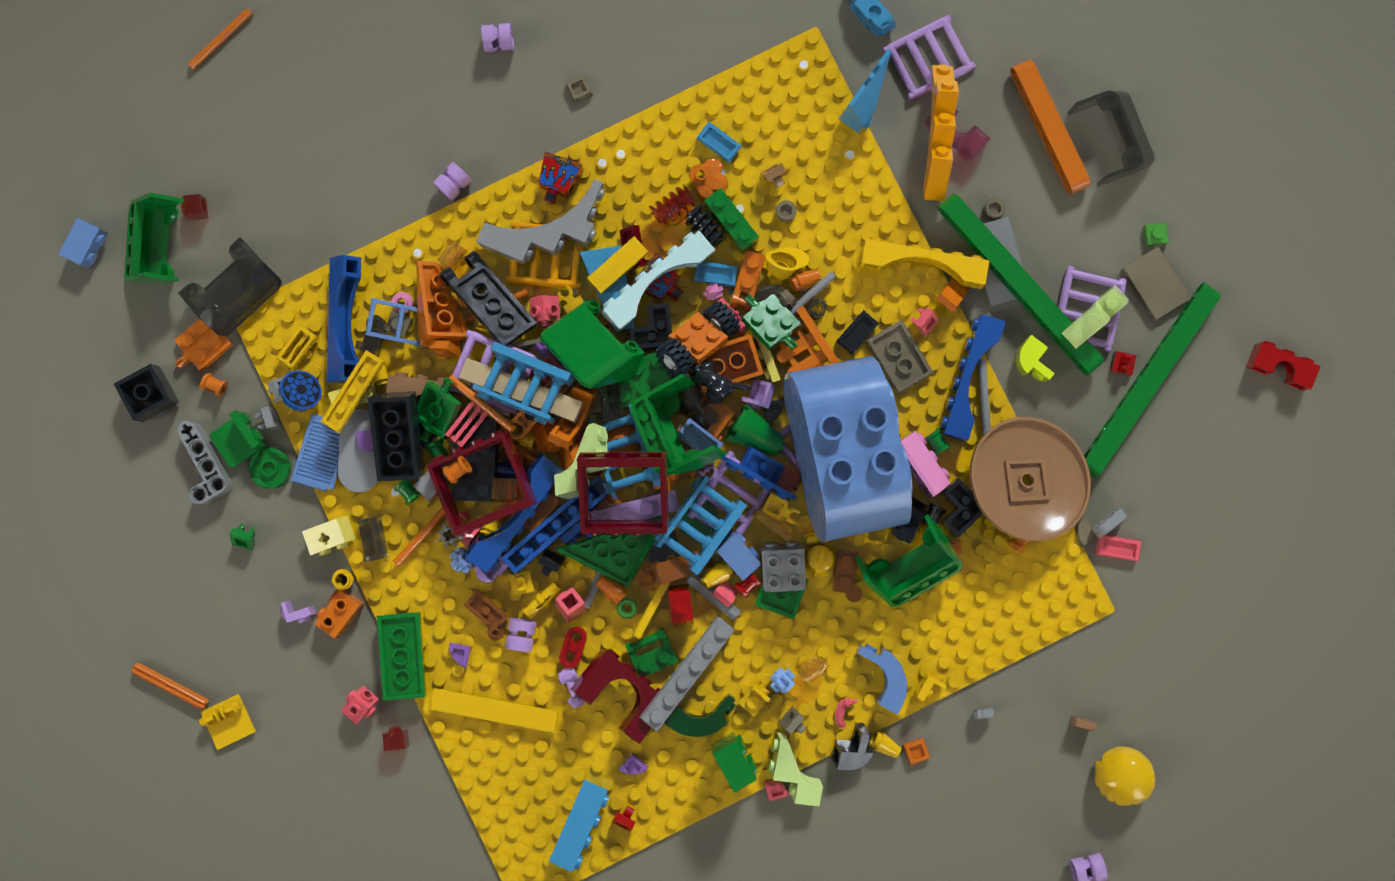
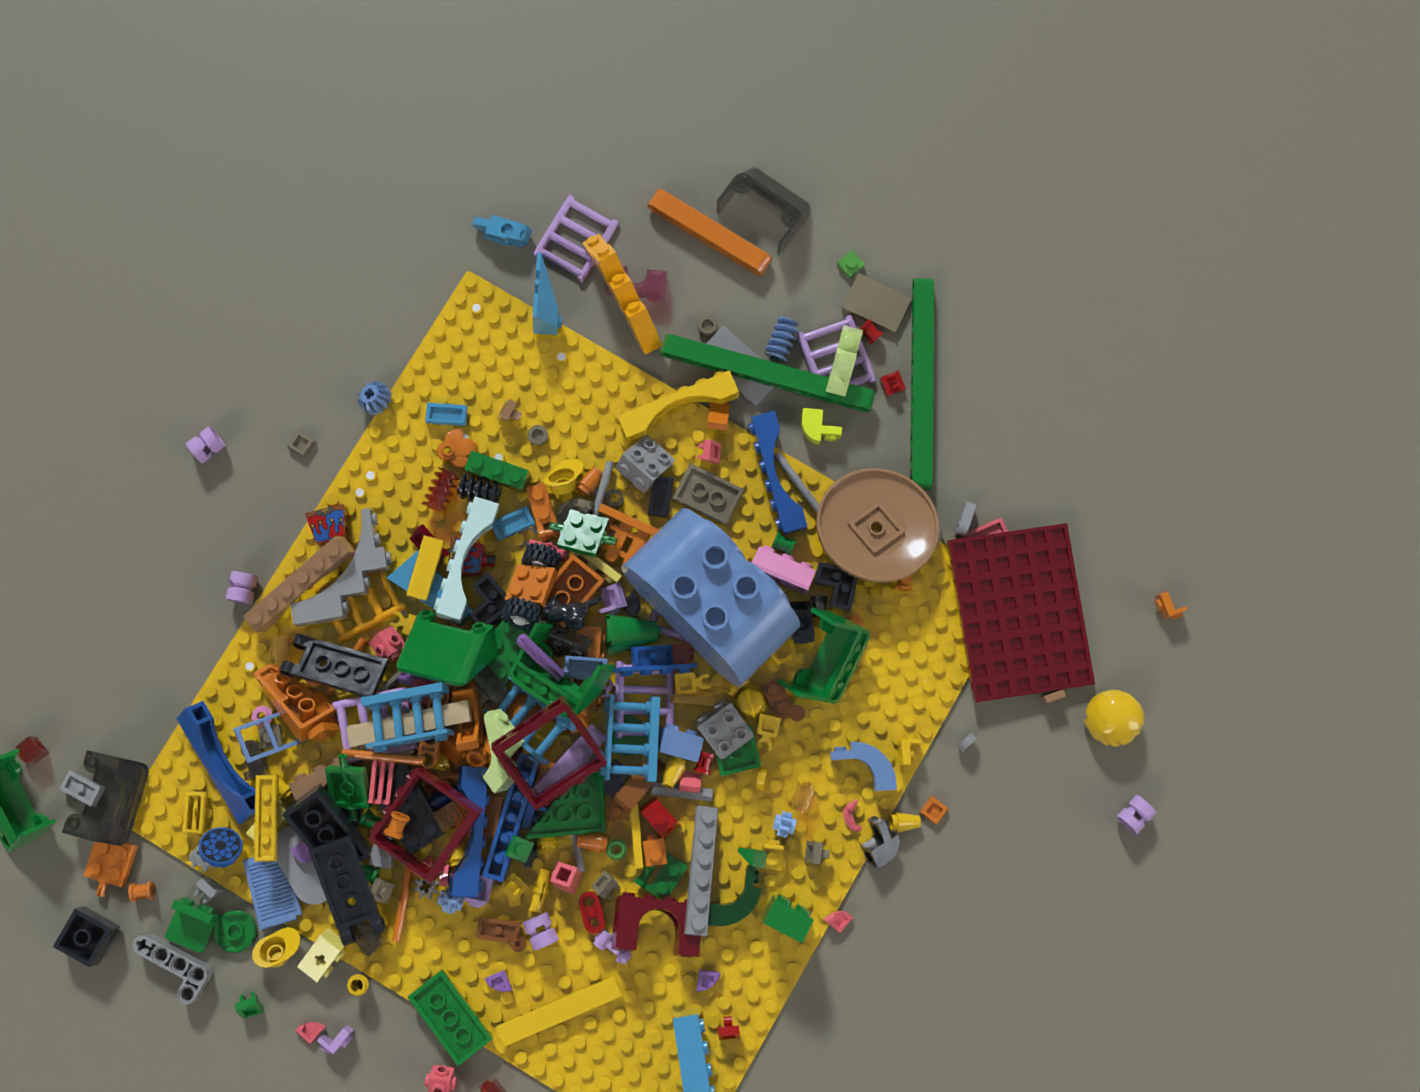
camera: 35 degrees left, 5 degrees down
(216, 266) = (82, 788): none -> light grey plate
(280, 590) = (310, 1031): none -> coral tile
(294, 505) = (276, 948): none -> yellow piece
(339, 613) = (373, 1016): orange brick -> none
(384, 484) = (345, 878): none -> black hinge
(409, 514) = (382, 890): none -> dark tan plate
(533, 204) = (278, 601): none -> medium nougat arch
(546, 555) = (519, 849): none -> green plate
(560, 455) = (477, 757): none -> orange tile
(599, 631) = (605, 884): none -> dark tan tile
(658, 631) = (654, 850): none -> orange bracket
(666, 88) = (374, 398): none -> medium blue gear
(667, 405) = (540, 657): none -> medium lavender axle
(713, 291) = (520, 539): bright pink plate -> none
(739, 691) = (754, 857): none -> green slope
(784, 768) = (833, 896): yellowish green arch -> none
(788, 629) = (762, 778): none -> yellow tile
(821, 590) = (768, 727): none -> yellow plate
(861, 294) = (644, 463): none -> light grey bracket
(1051, 261) = (781, 338): none -> medium blue piece
(1104, 633) = (1020, 612): none -> dark red plate
(1134, 305) = (870, 331): none -> red bush
(1234, 710) = (1164, 604): none -> orange bracket
(1300, 371) = (1036, 300): red arch -> none

